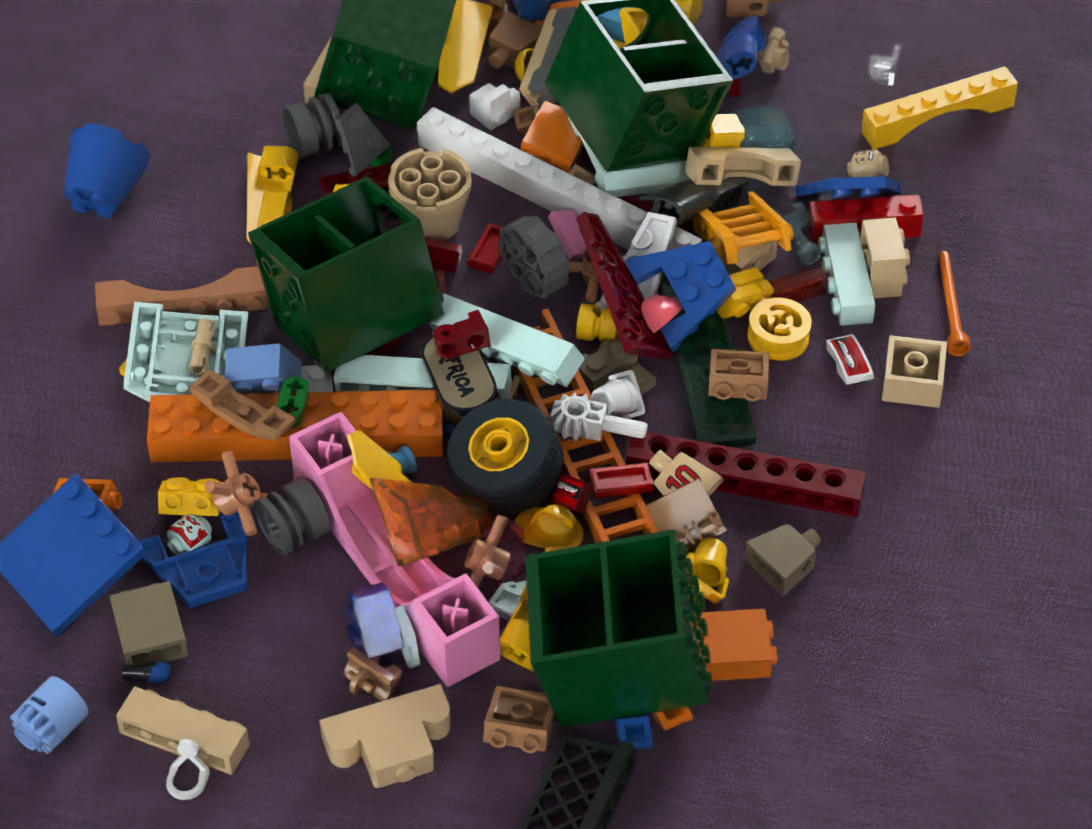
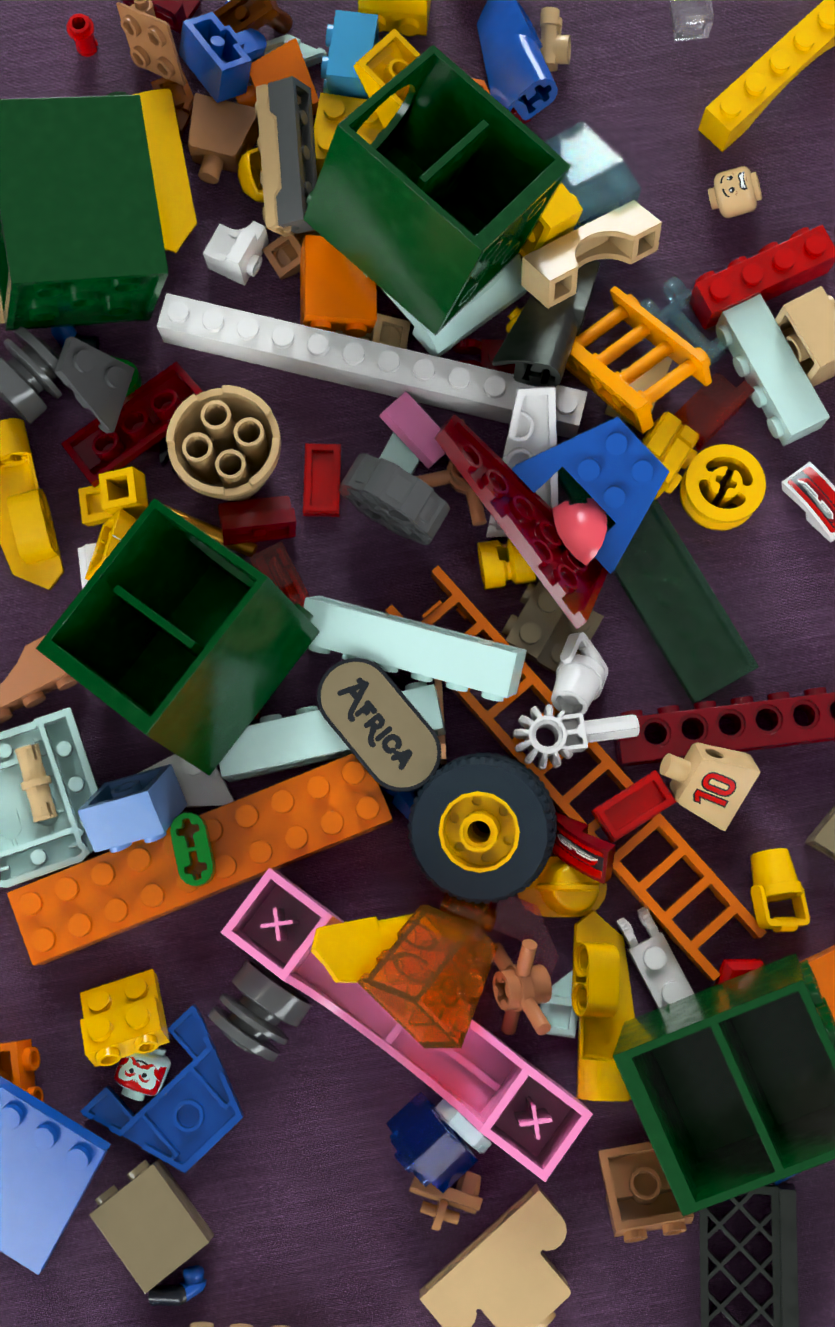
camera: 20 degrees left, 30 degrees up
(236, 493) = (187, 1026): nougat bar -> none
(239, 410) = (136, 888): medium nougat slope -> none
(406, 459) = (351, 864): dark azure wheel -> none
(462, 336) = (366, 680): dark red leg -> none
(687, 512) = (732, 835): medium nougat hinge -> none
(738, 374) = (711, 590): medium nougat plate -> none
(844, 187) = (737, 250): blue wing -> none

